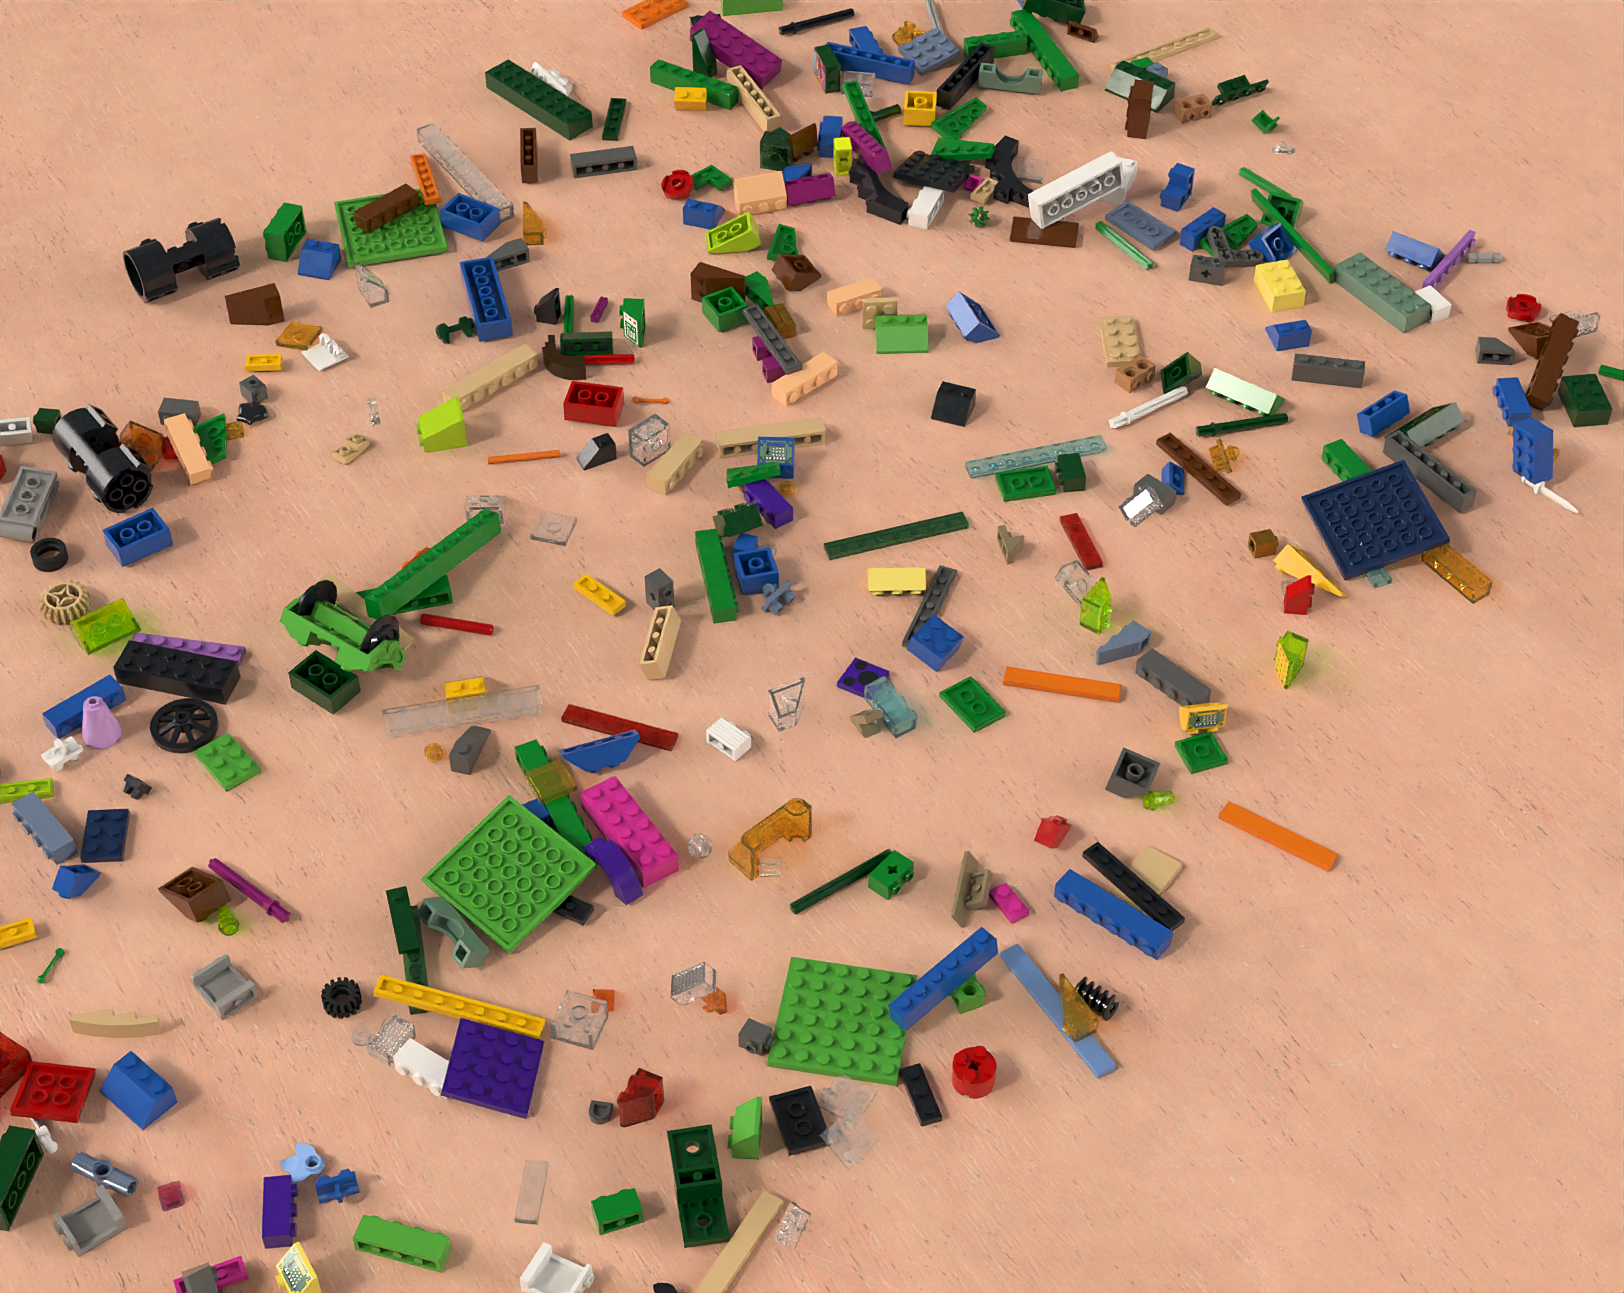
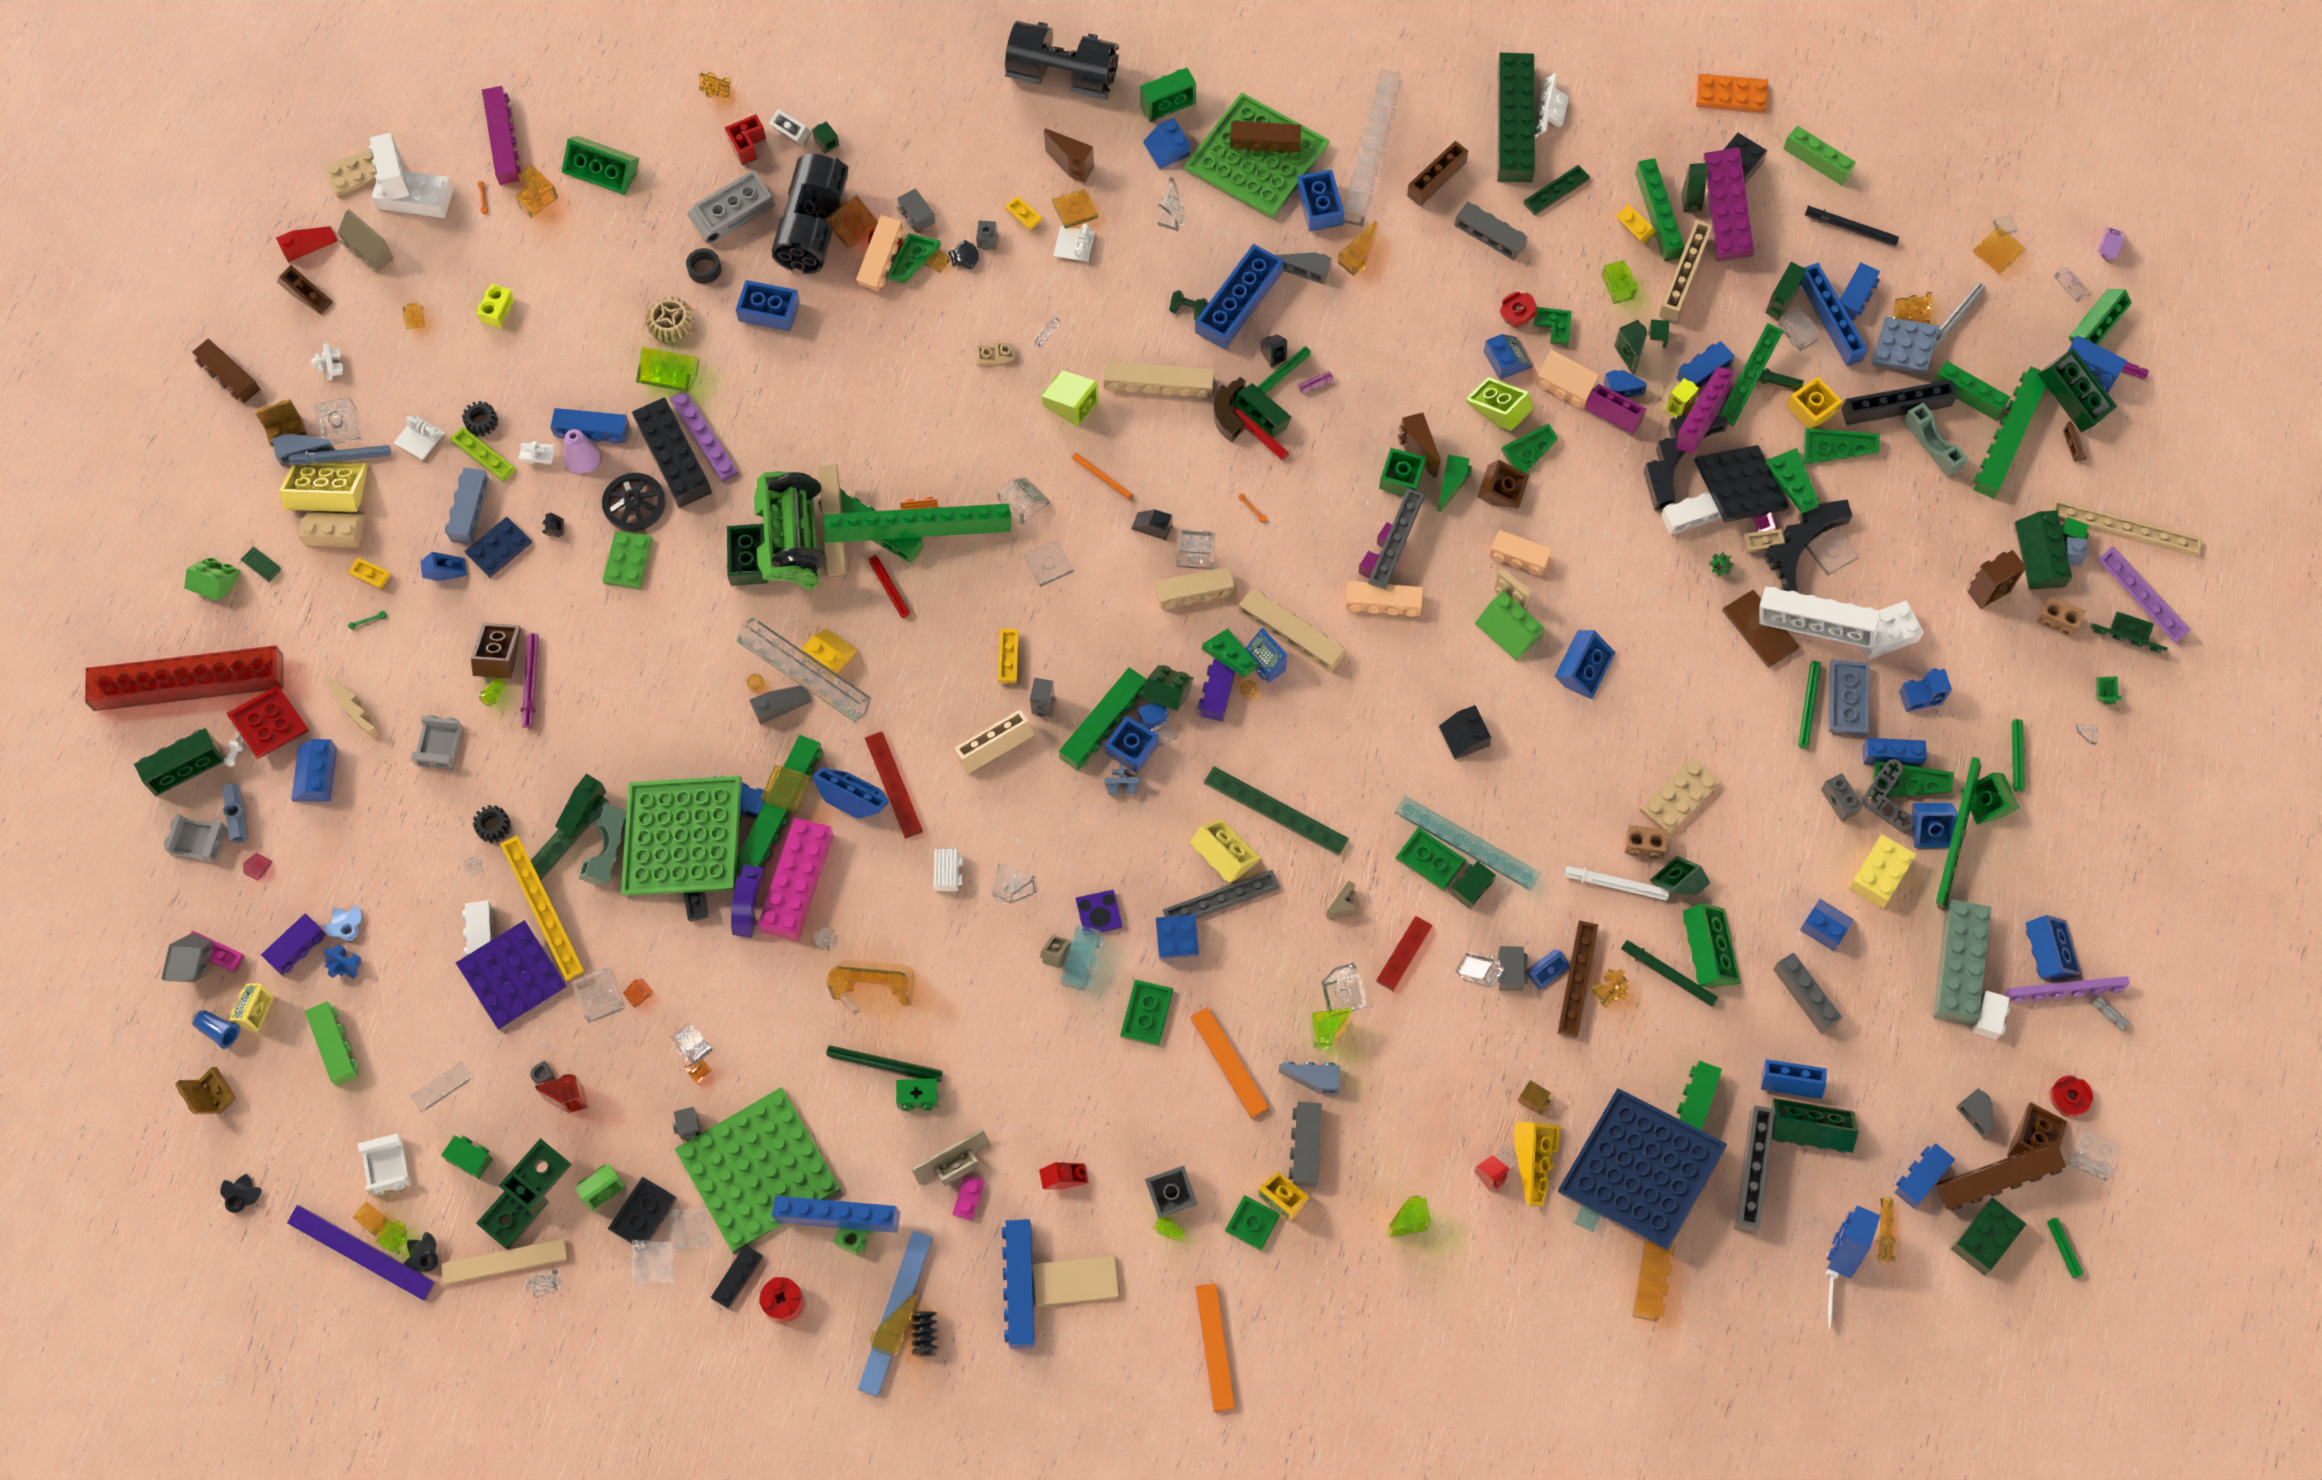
camera: 50 degrees right, 20 degrees up
(390, 1039) = (483, 887): clear brick -> none
(425, 179) = (1332, 128): orange tile -> none
(593, 403) = (1199, 474): red brick -> none
(633, 320) = (1321, 421): green slope -> none
(719, 133) = (1619, 281): none -> clear neon green brick
(781, 320) = (1432, 524): pearl gold brick -> none
(803, 142) = (1663, 354): reddish brown slope -> none
(1133, 886) = (1055, 1279): black plate -> none
(1218, 69) = (2144, 594): none -> medium lavender plate

